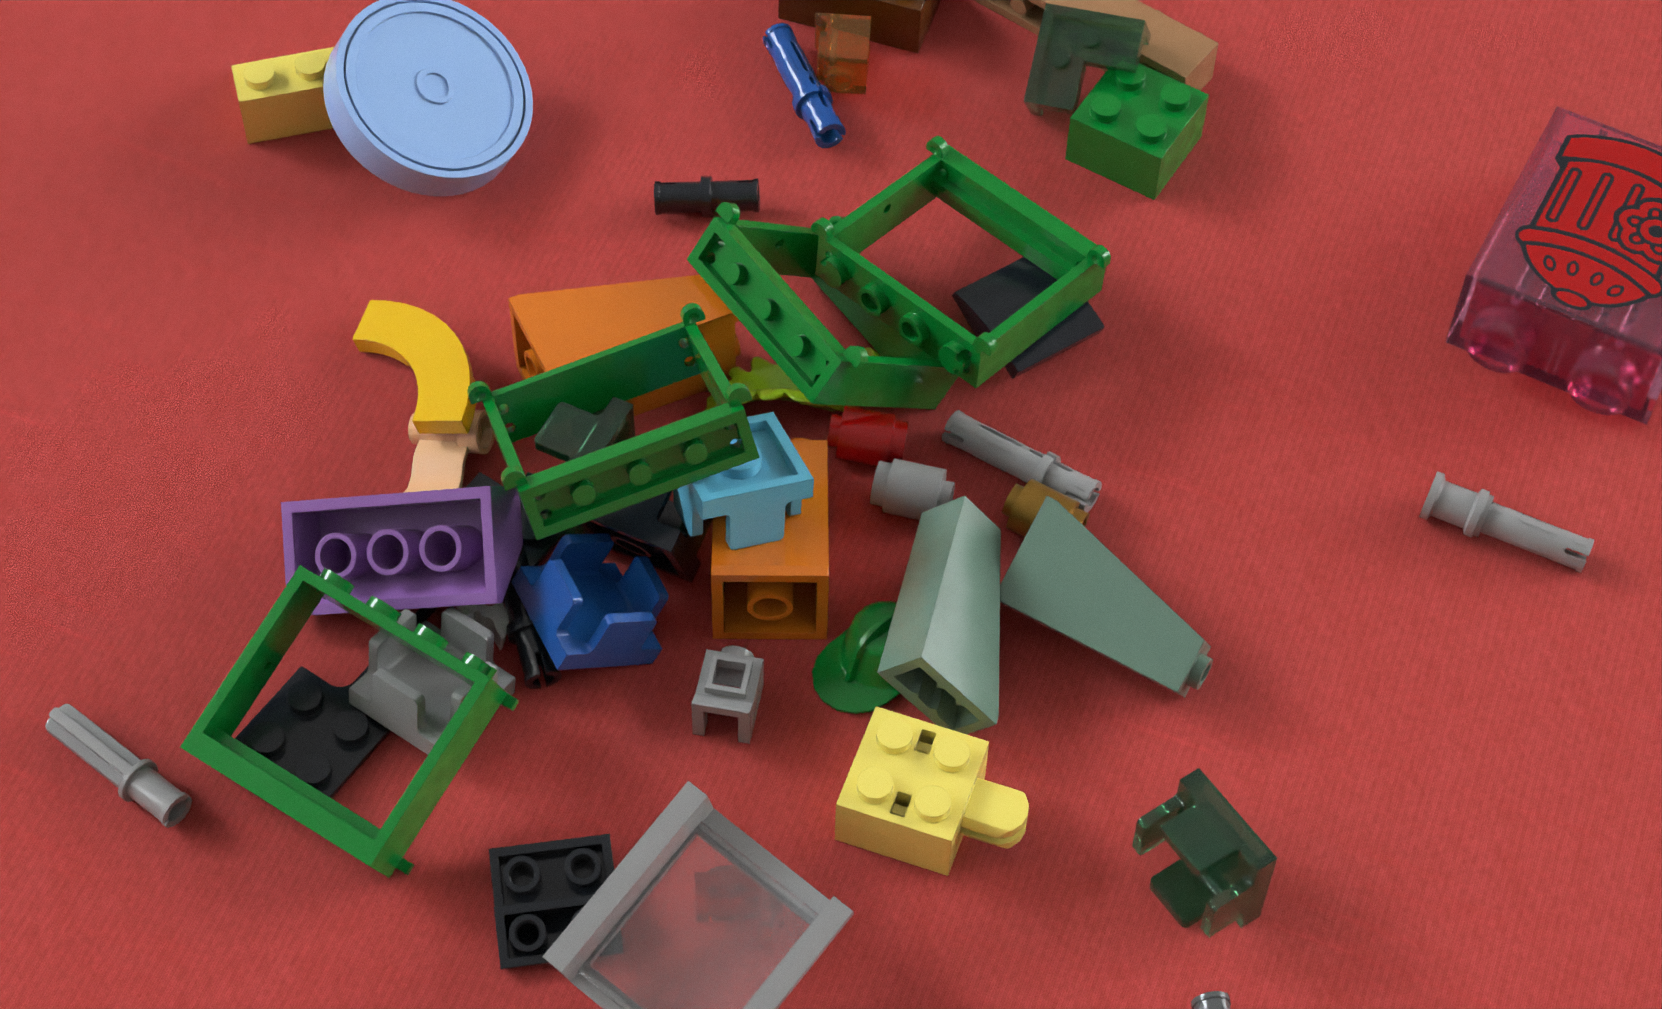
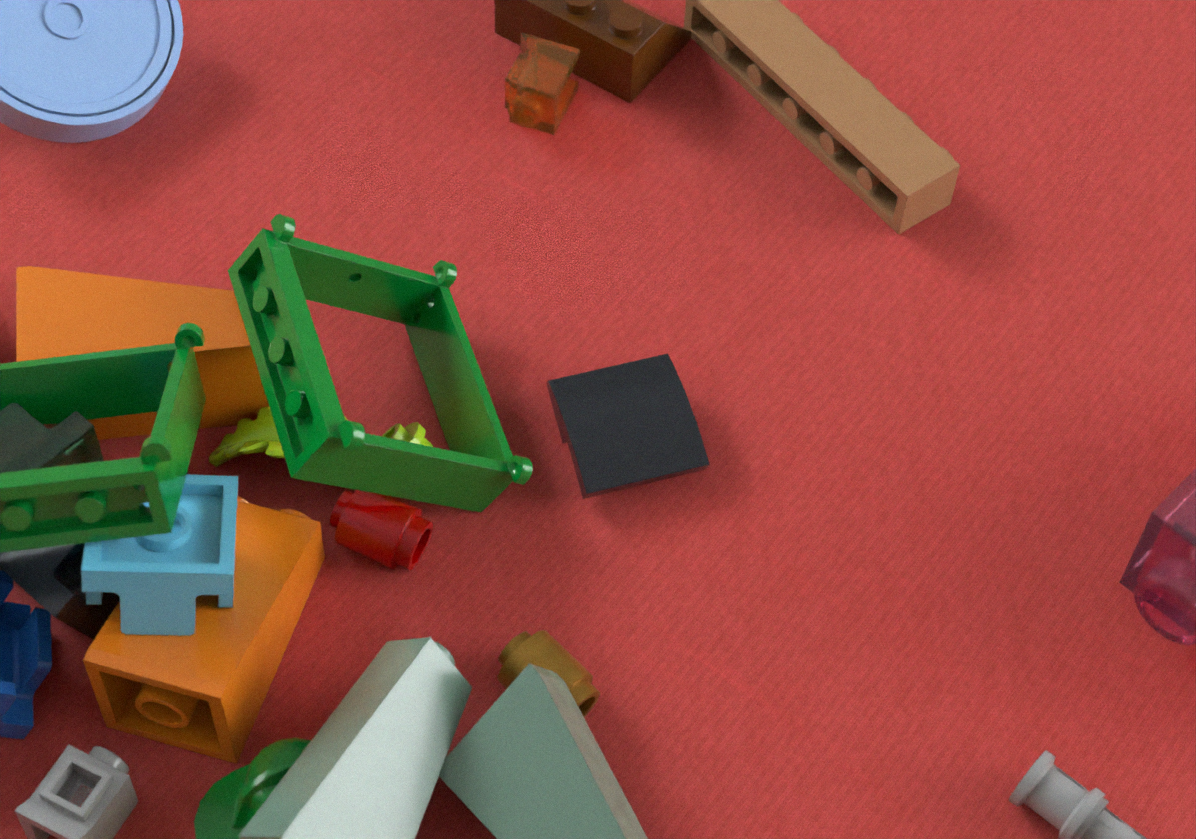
camera: 15 degrees right, 0 degrees up
(705, 195) = (325, 206): black pin -> none
(810, 98) = (485, 125): blue pin -> none
(910, 488) = (401, 604): light grey brick -> none
(997, 209) = (661, 338): green window -> none
(1020, 459) = (557, 612): light grey pin -> none
(1071, 42) = (787, 125): clear green panel -> none
(1136, 128) = (834, 239): green brick -> none

